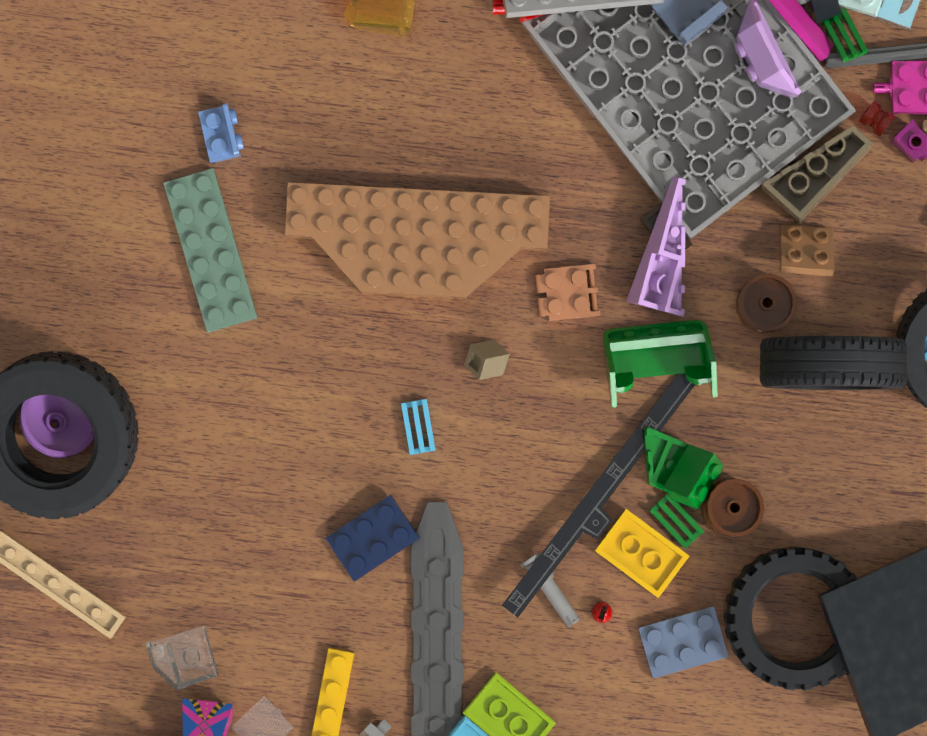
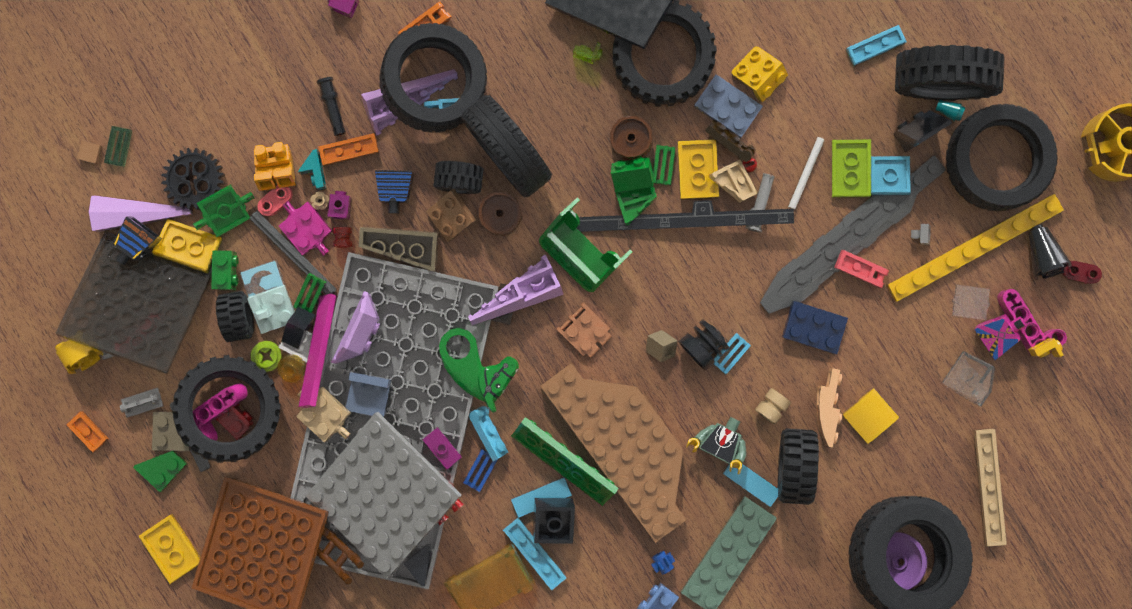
camera: 130 degrees left, 0 degrees up
(231, 519) = (870, 416): none -> yellow slope
(245, 394) = (798, 466): none -> black tyre
(260, 174) = (663, 562): none -> blue gear
(265, 337) = (753, 483): none -> medium azure tile
(270, 474) = (827, 416): none -> light nougat slope
(327, 424) = (773, 406): none -> tan wheel
(332, 338) = (722, 443): none -> torso
(379, 49) = (534, 553): none -> medium azure plate
(394, 638) = (861, 268): none -> coral plate
(398, 96) = (553, 520): none -> black brick
(431, 104) = (525, 503): none -> medium azure tile
(450, 157) = (564, 462): none -> green plate
(451, 404) = (704, 344): none -> black wheel
(504, 44) = (472, 484): none -> blue tile
(543, 666) = (806, 173): none -> white bar
(545, 103) = (488, 433): none -> medium azure plate
(569, 41) = (442, 448): none -> magenta plate
(597, 581) = (735, 181): none -> tan wing
(617, 133) = (479, 381): none -> green animal
(643, 612) = (730, 141): none -> dark brown plate
(690, 705) = (760, 73): none -> yellow bracket
(841, 289) = (456, 175): none -> black tyre
(864, 534) = (584, 53): none -> clear neon green bracket
(884, 214) = (394, 188): none -> torso

